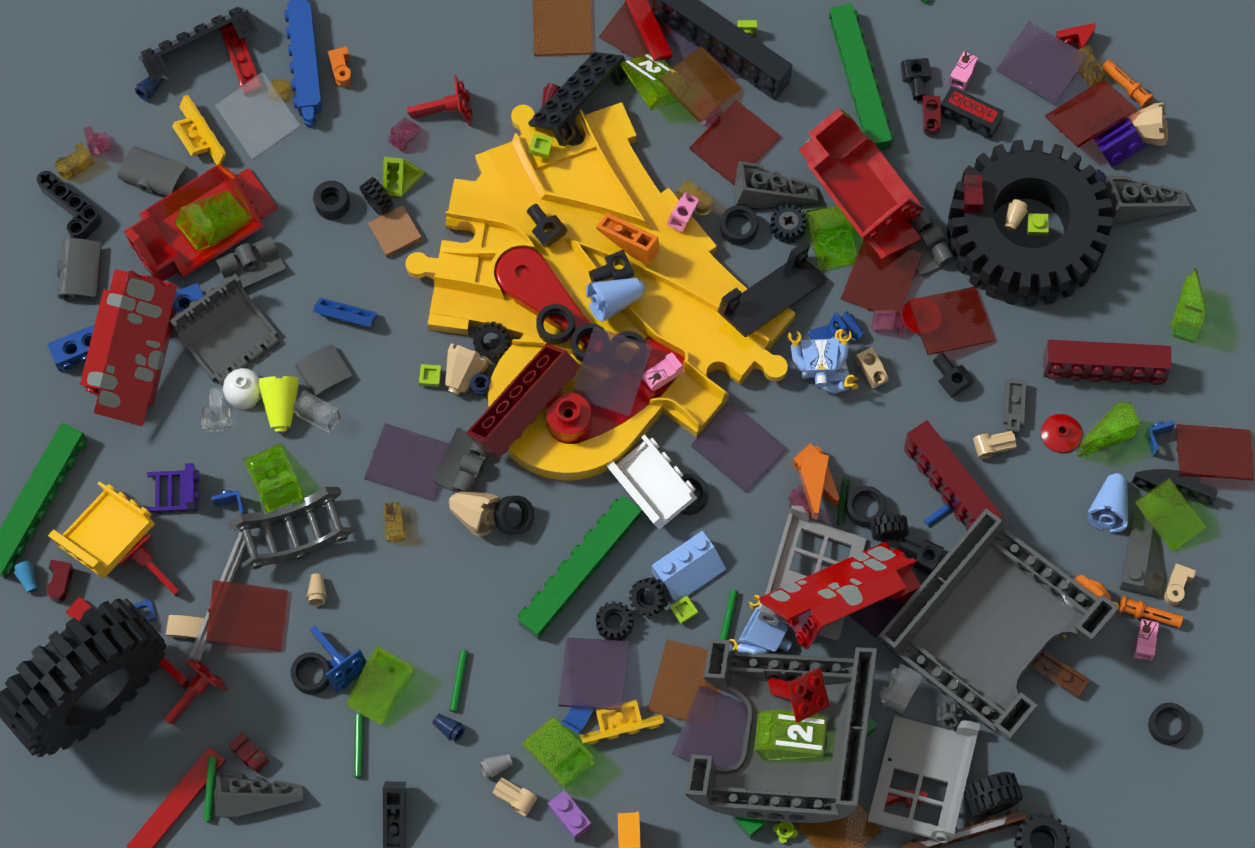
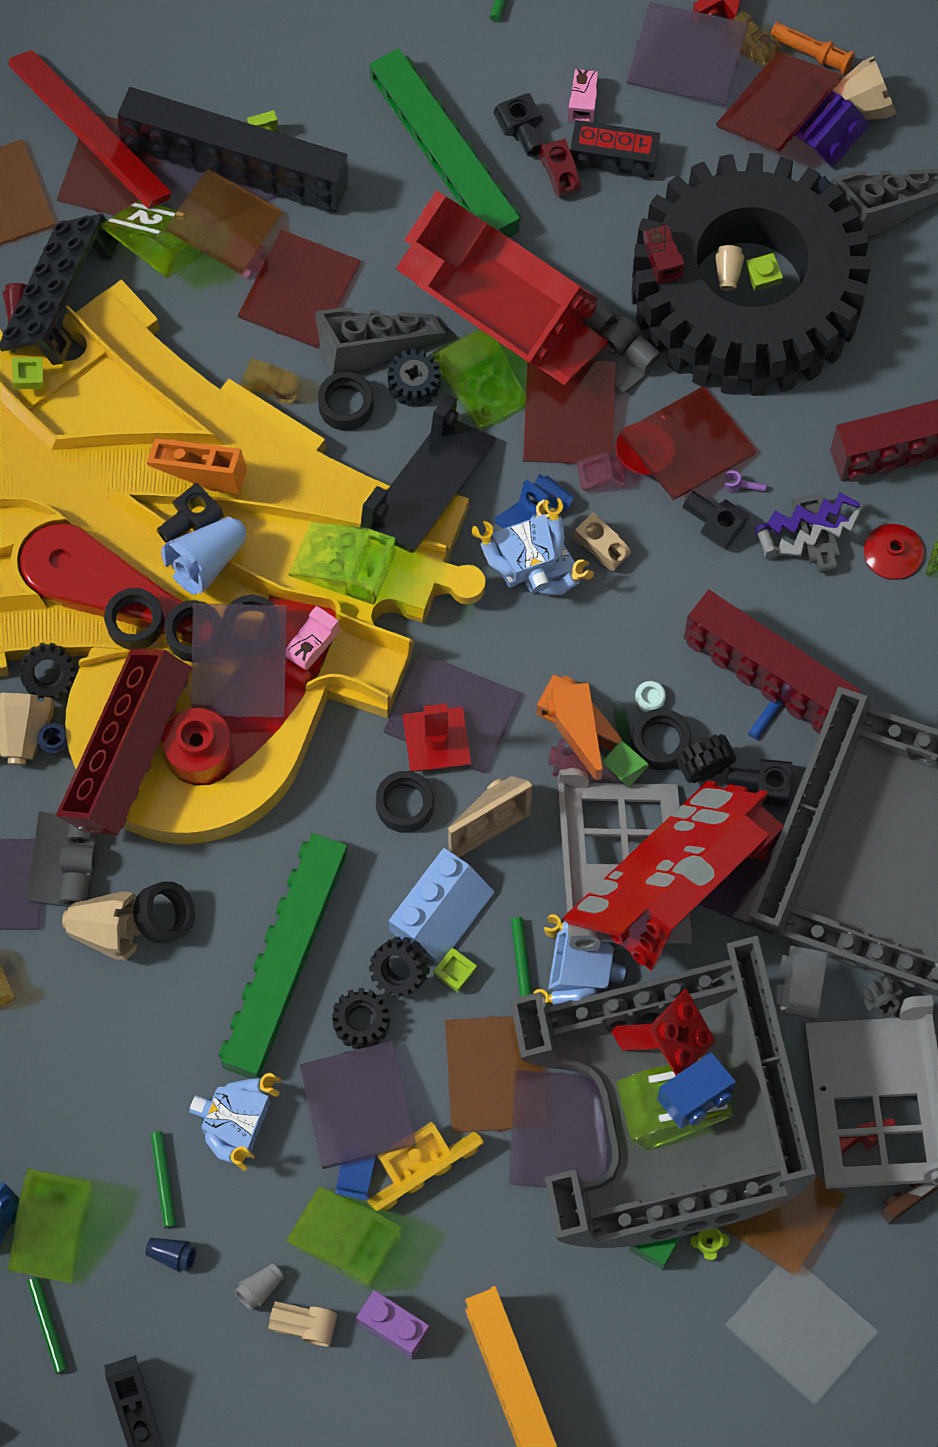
camera: 20 degrees left, 0 degrees up
(515, 656) = (235, 1117): none -> light blue torso
(543, 223) = (68, 480): black piece -> none
(653, 482) = (350, 800): white panel -> none
(682, 212) = (262, 406): bright pink leg -> none
(700, 328) = (345, 559): none -> clear neon green slope
(722, 460) = (436, 738): none -> red piece
(737, 520) = (491, 814): none -> tan slope
(804, 732) = (696, 1091): none -> blue brick
(836, 514) = (625, 764): none -> bright green slope
(869, 477) = (650, 696): none -> light aqua tile
(971, 359) = (744, 484): none -> medium lavender hand
(988, 445) = (802, 598): tan piece -> none
(1017, 399) = (818, 521): none -> piece

